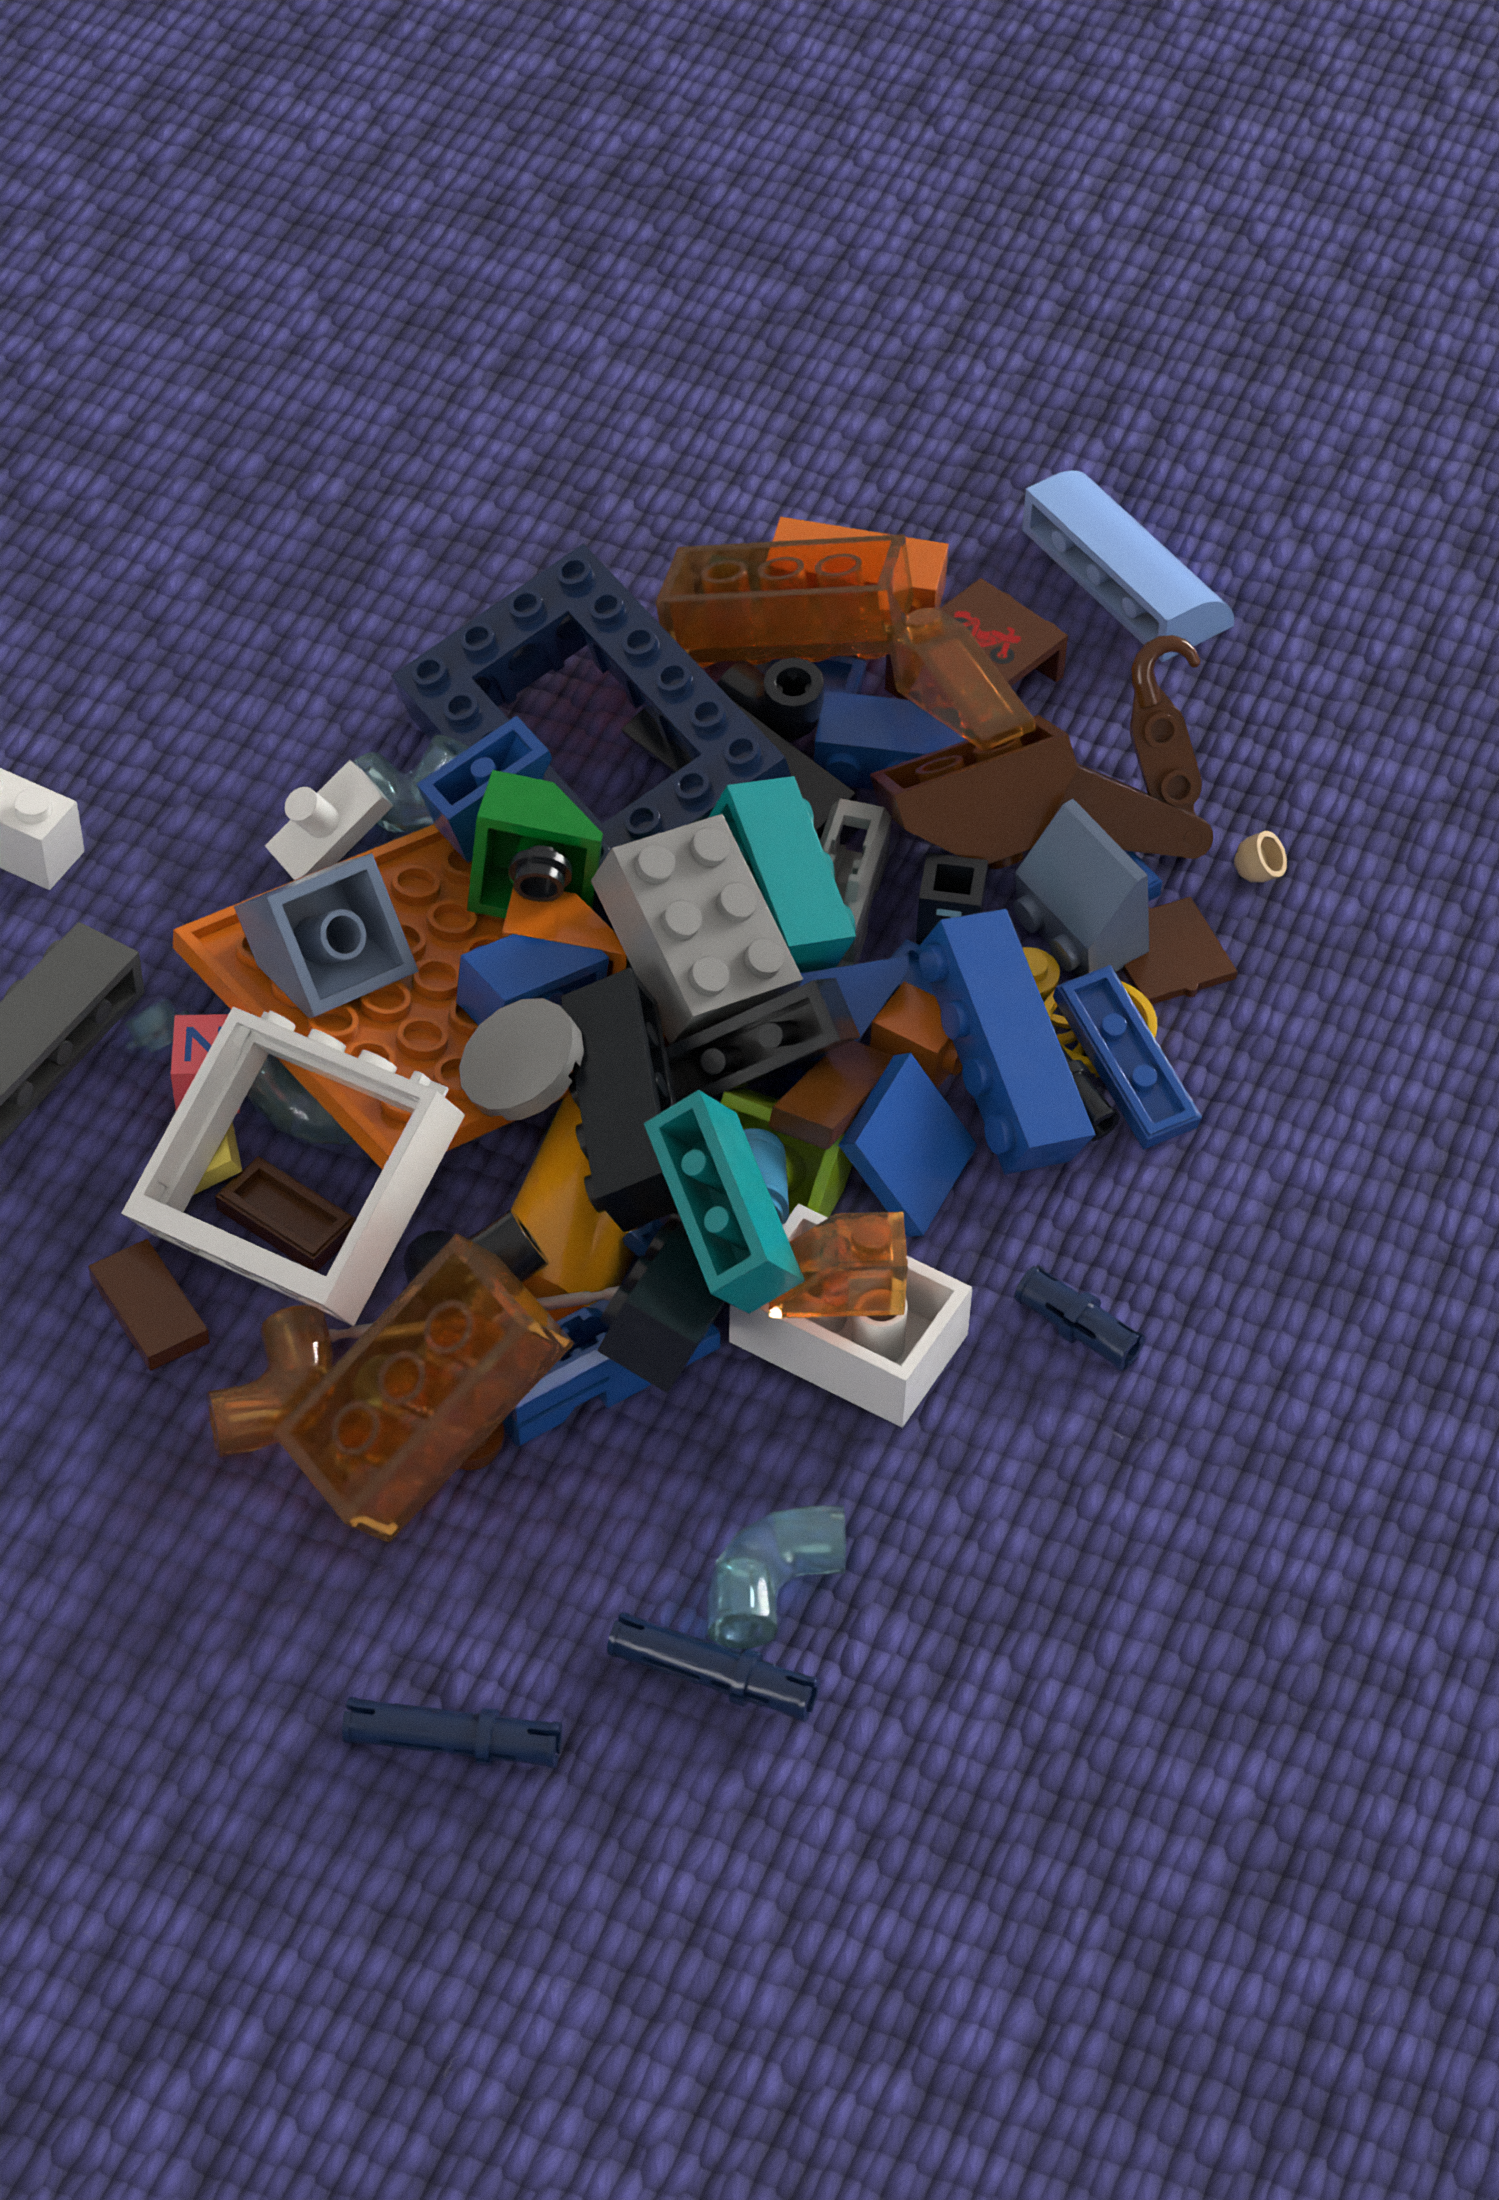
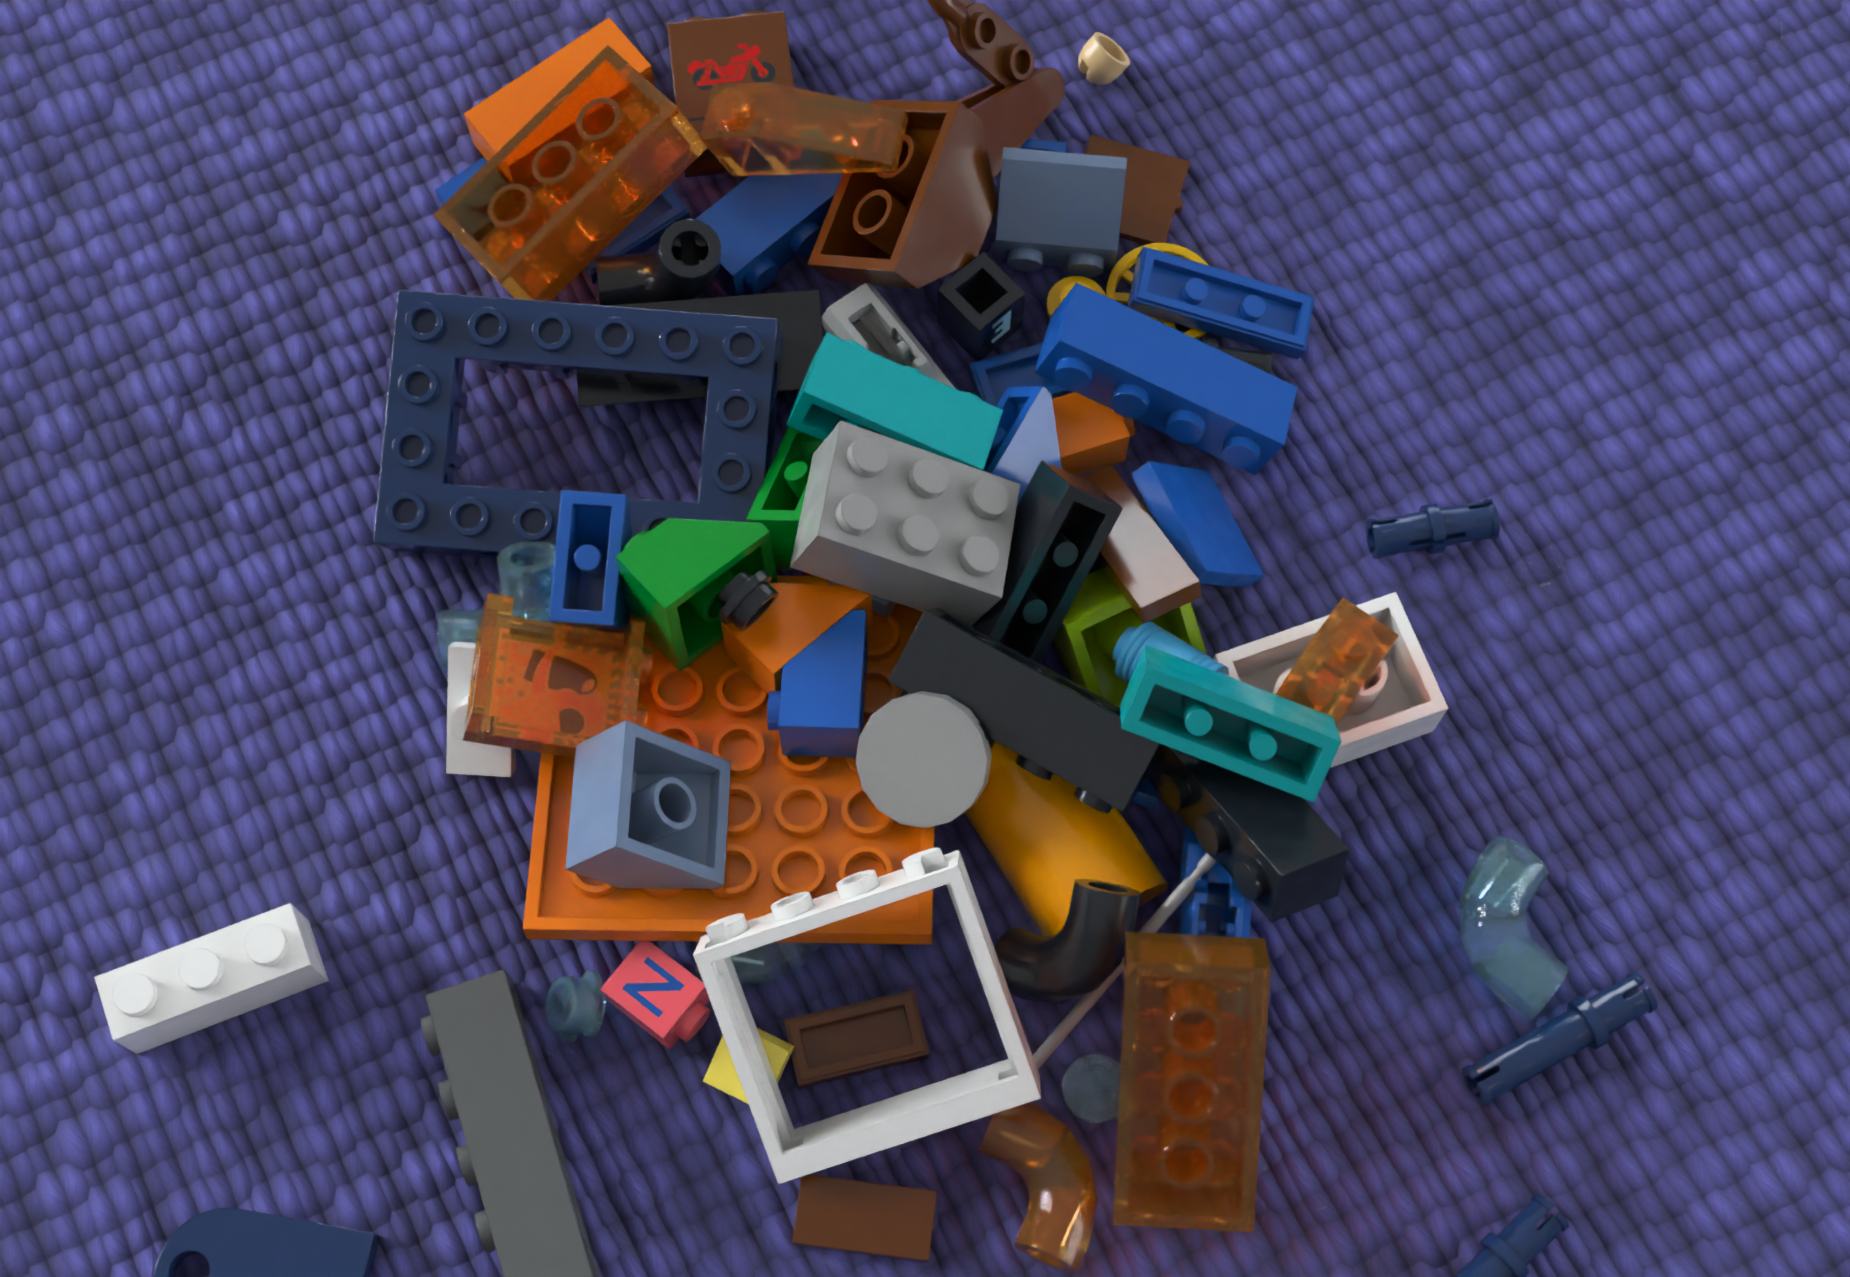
camera: 50 degrees left, 20 degrees up
(367, 804) = (551, 682): none -> clear orange panel

